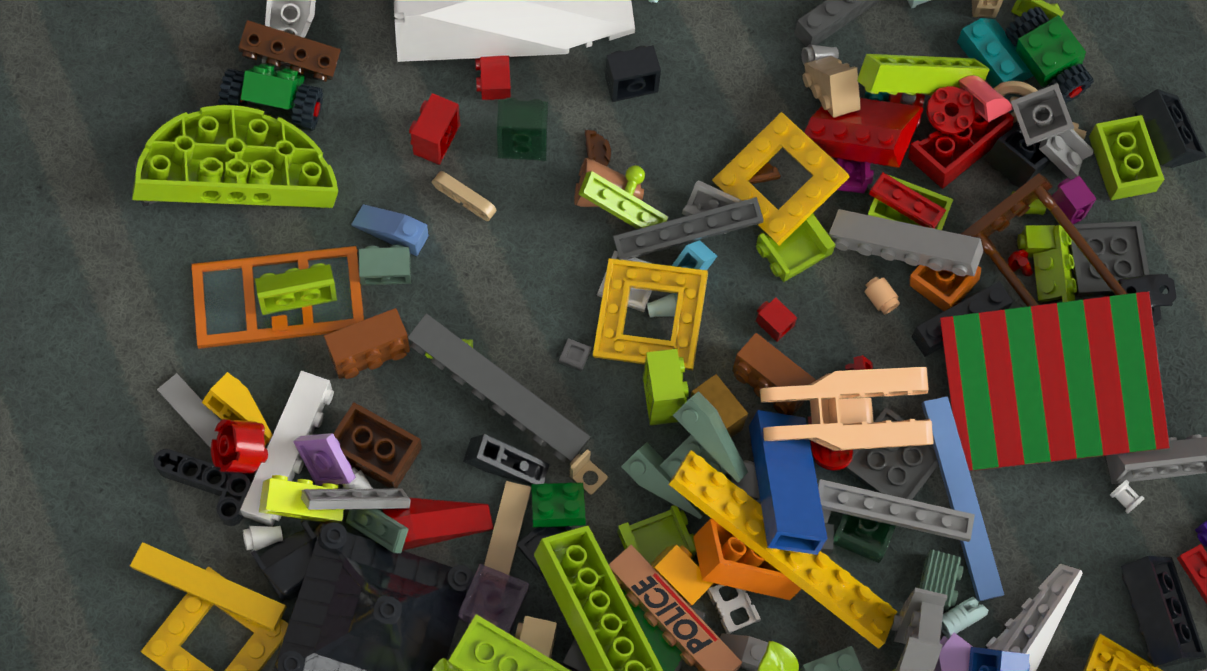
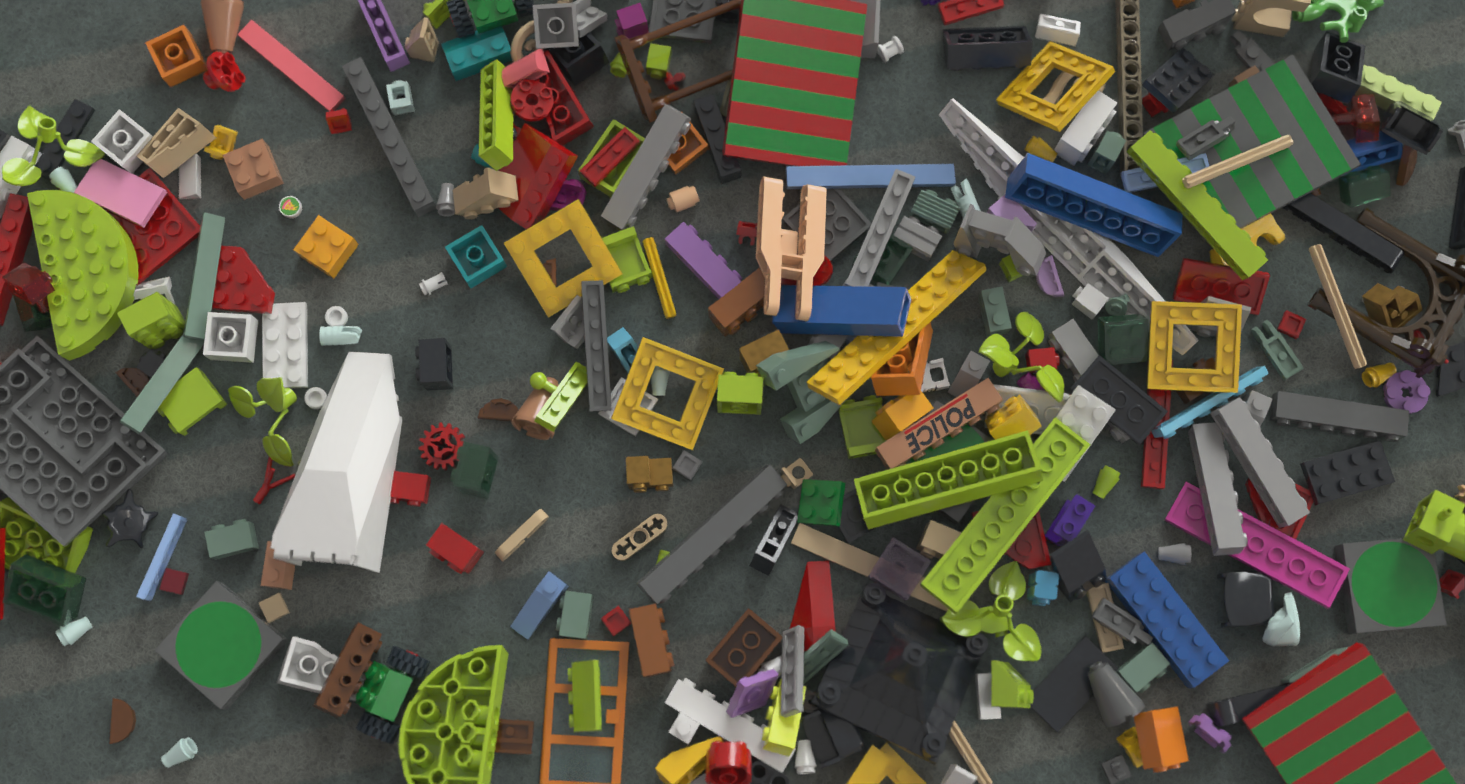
camera: 75 degrees left, 10 degrees up
(243, 226) = (514, 736): none -> reddish brown plate
(274, 397) = (684, 728): none -> white brick
(385, 304) = (616, 621): none -> red tile
(501, 324) = (649, 522): none -> tan beam
(554, 305) = (649, 473): none -> pearl gold brick
(558, 103) = (446, 433): none -> red gear
(719, 55) = (433, 283): none -> white pin
(761, 92) = (476, 256): none -> teal brick
(775, 319) = (688, 290): red brick -> none
(784, 287) = (659, 277): none -> yellow axle
(816, 324) = (702, 261): none -> medium lavender brick
(900, 564) = (921, 238): none -> light grey brick
(1054, 270) = (693, 55): lime bracket -> none

